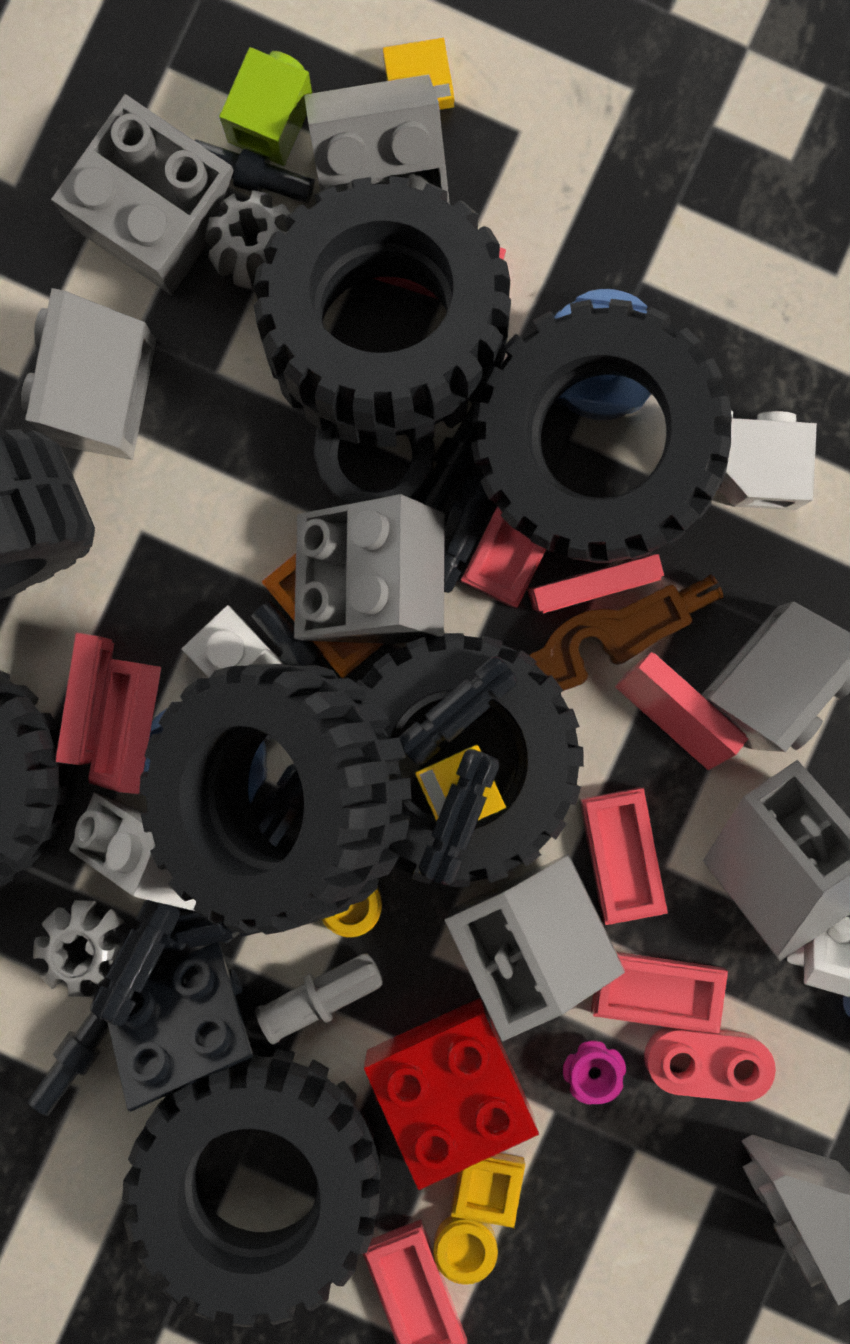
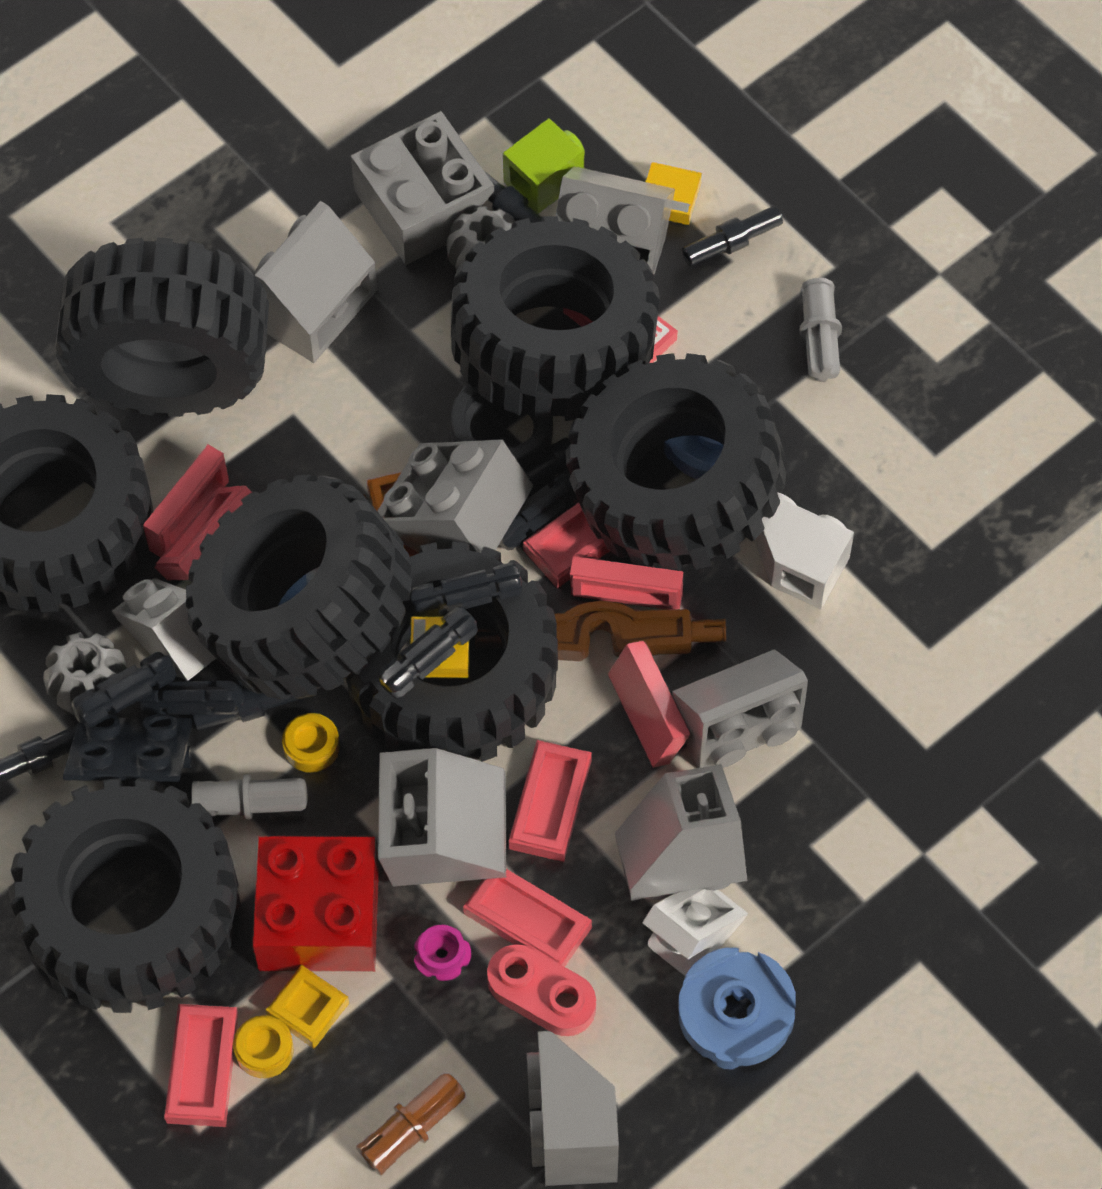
camera: 30 degrees right, 25 degrees down
(511, 102) = (732, 235): none -> black bar
(651, 1265) = (411, 1123): none -> dark orange axle
(658, 178) = (820, 328): none -> light grey axle

